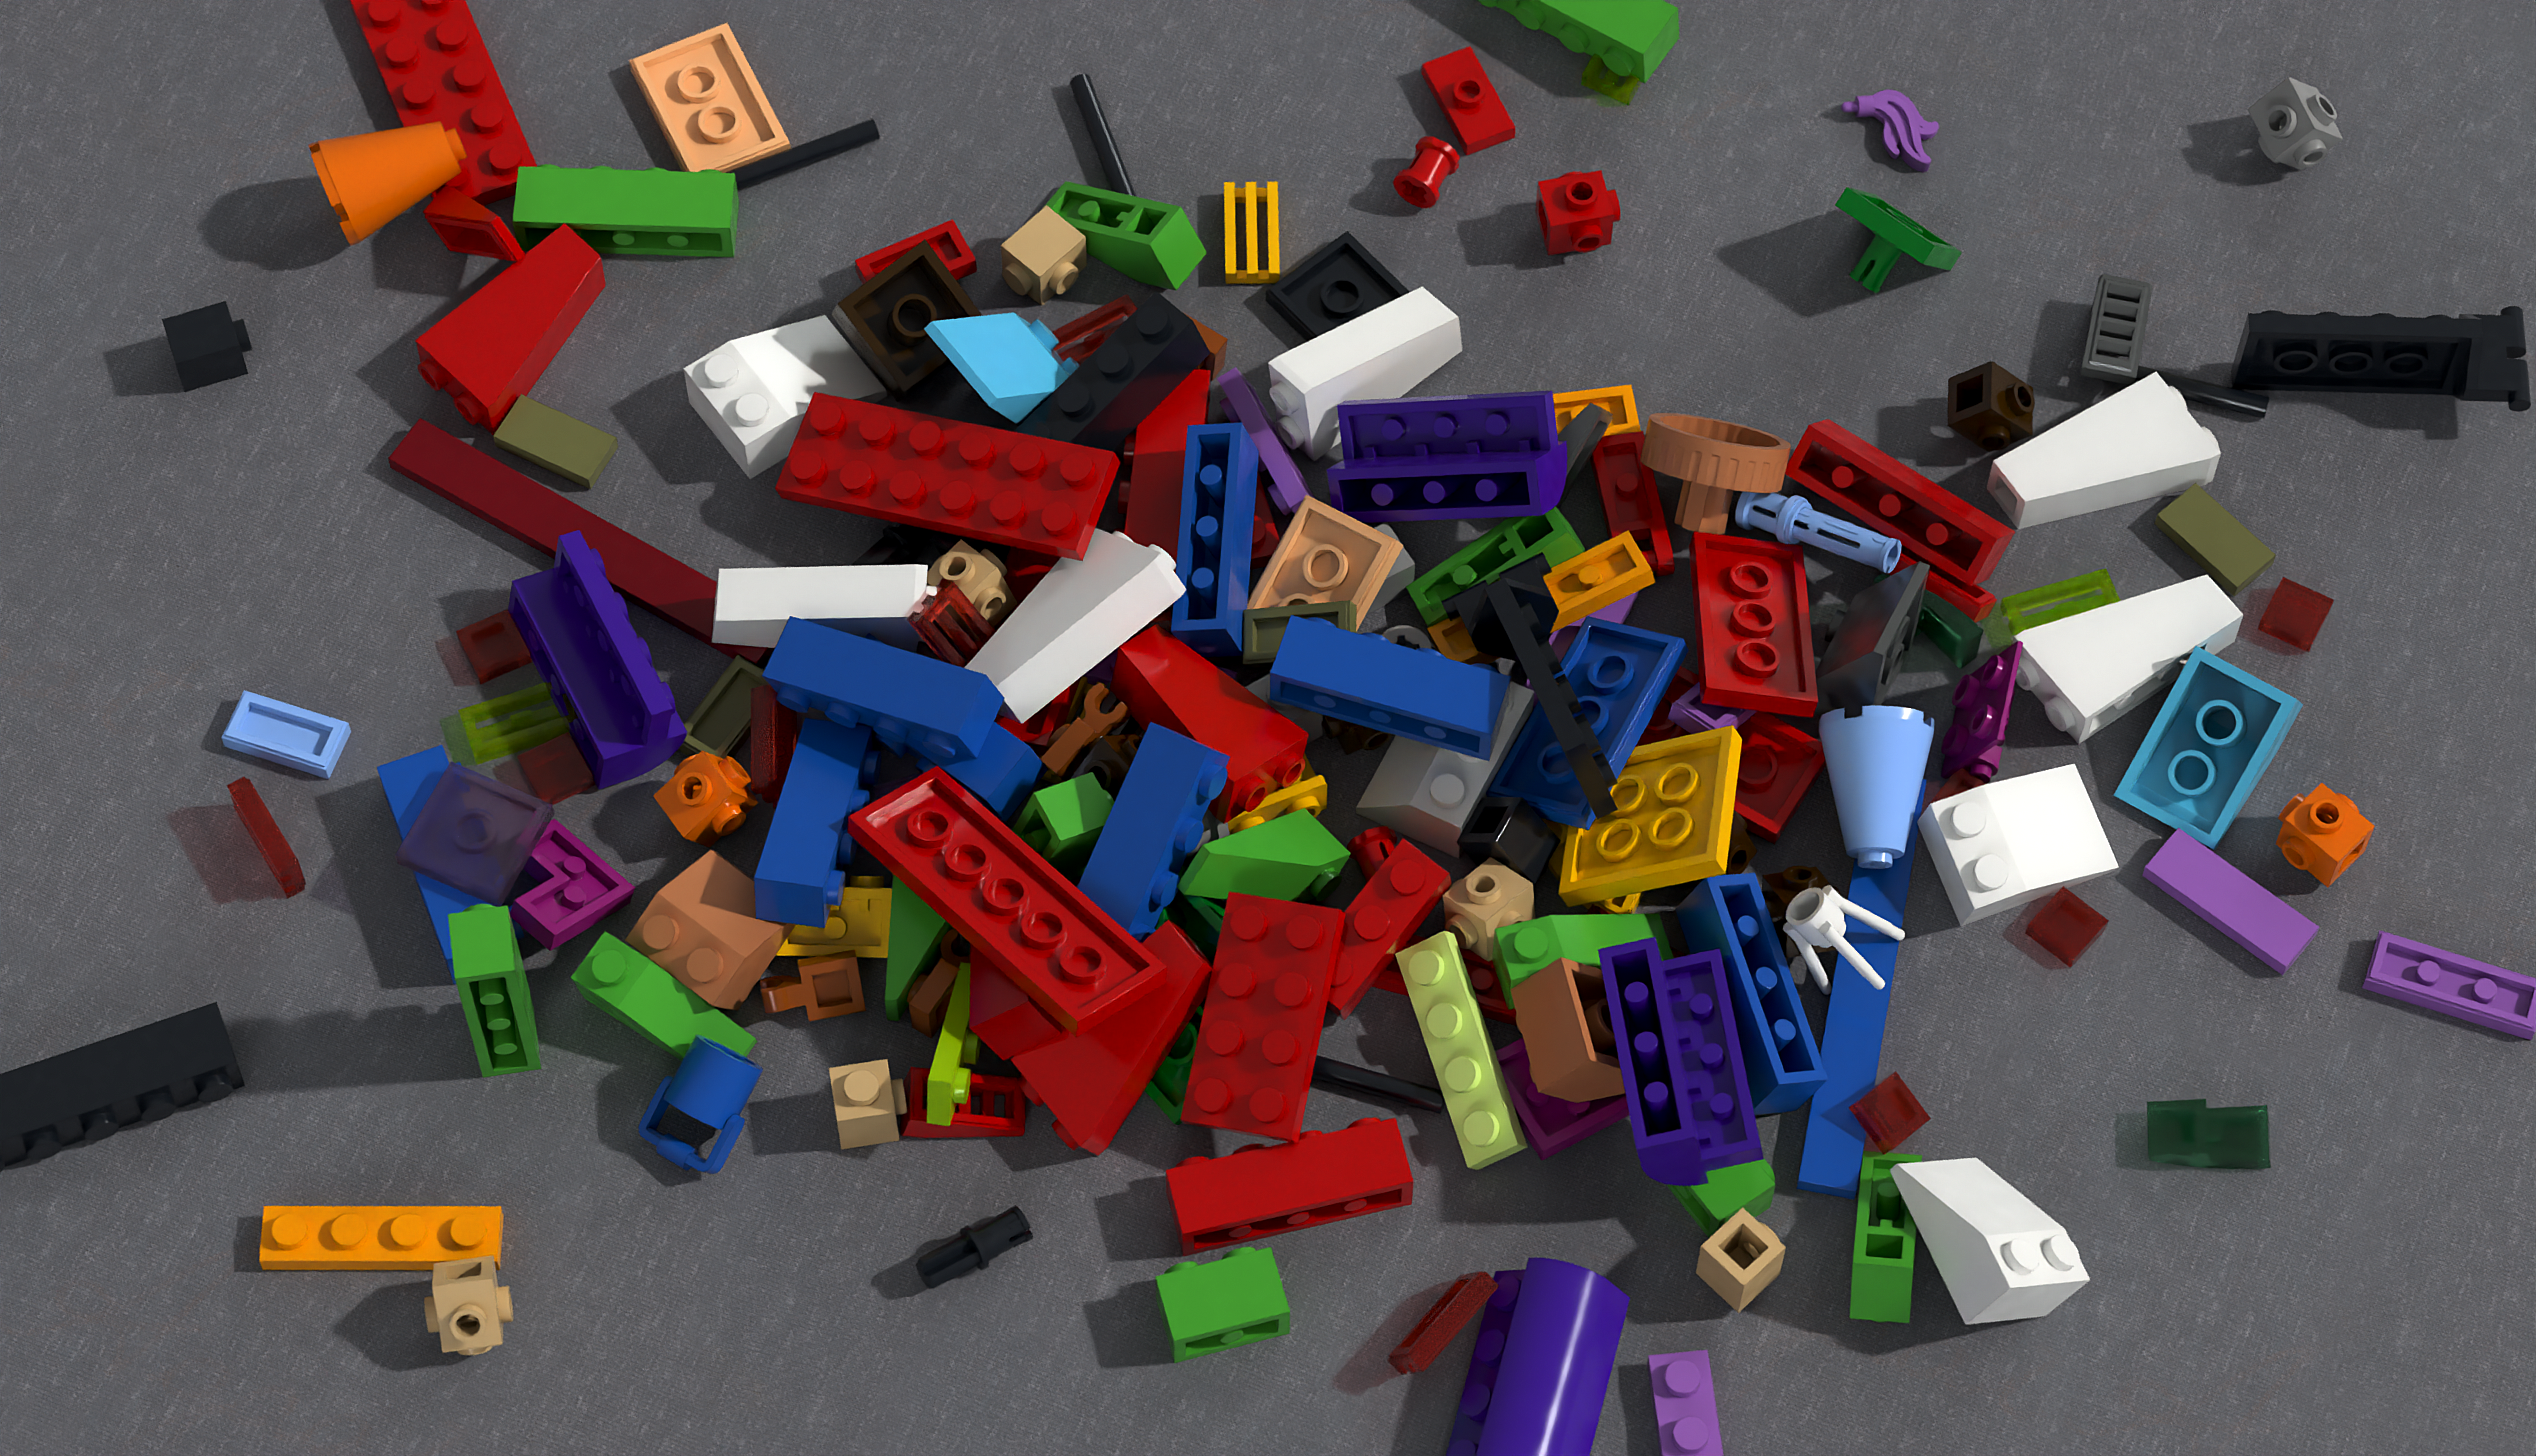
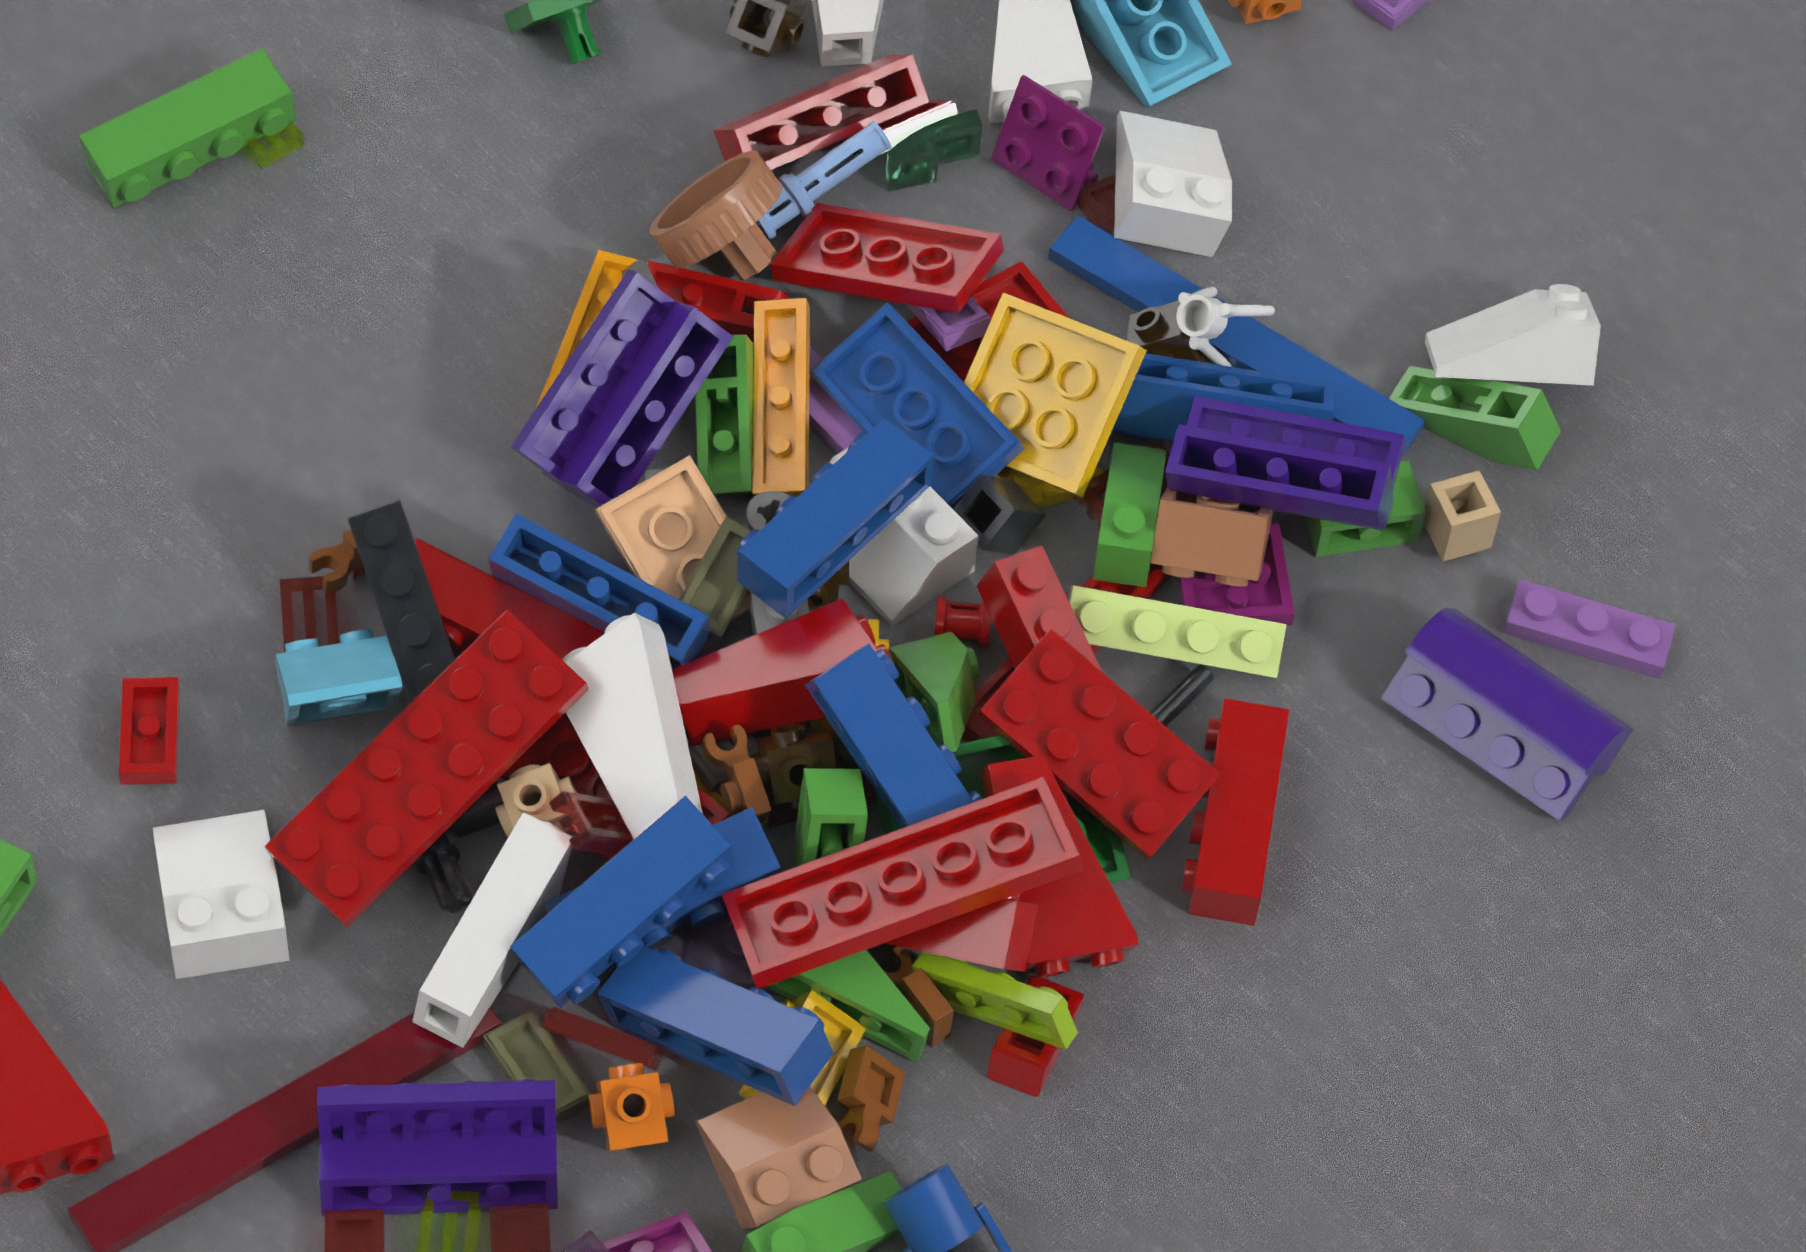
camera: 70 degrees left, 5 degrees down
(555, 441) = (160, 1103): olive tile -> none
(866, 1103) = (1007, 1102): tan brick -> none
(890, 315) = (225, 744): dark brown brick -> none
(974, 1247) = (1183, 1074): black axle -> none
(1043, 256) = (205, 624): tan brick -> none
(1101, 135) = (104, 536): black bar -> none
(1132, 233) = (216, 553): bright green slope -> none
(1222, 1303) = (1326, 904): bright green brick -> none
(1246, 407) = (463, 532): medium lavender plate -> none
(1251, 196) = (272, 455): yellow tile -> none
(1333, 288) = (379, 426): black tile -> none
(1361, 360) = (476, 431): white slope -> none
(1426, 172) = (293, 306): red bush -> none
(1442, 1322) = (1421, 744): clear red tile -> none
(1468, 100) = (232, 250): red plate -> none
(1486, 901) = (1065, 549): tan brick -> none
(1514, 624) = (827, 407): black hinge -> none
(1576, 212) = (407, 215): red brick -> none
(1870, 643) = (958, 169): dark grey slope -> none
(1876, 777) = (1082, 235): light blue cone -> none
(1889, 1113) = (1367, 367): clear red tile -> none
(2015, 604) = (963, 94): clear neon green tile -> none
(2066, 926) = (1255, 187): clear red tile -> none
(2208, 1137) = (1479, 174): clear green slope -> none
(2230, 901) = (1282, 73): medium lavender tile -> none

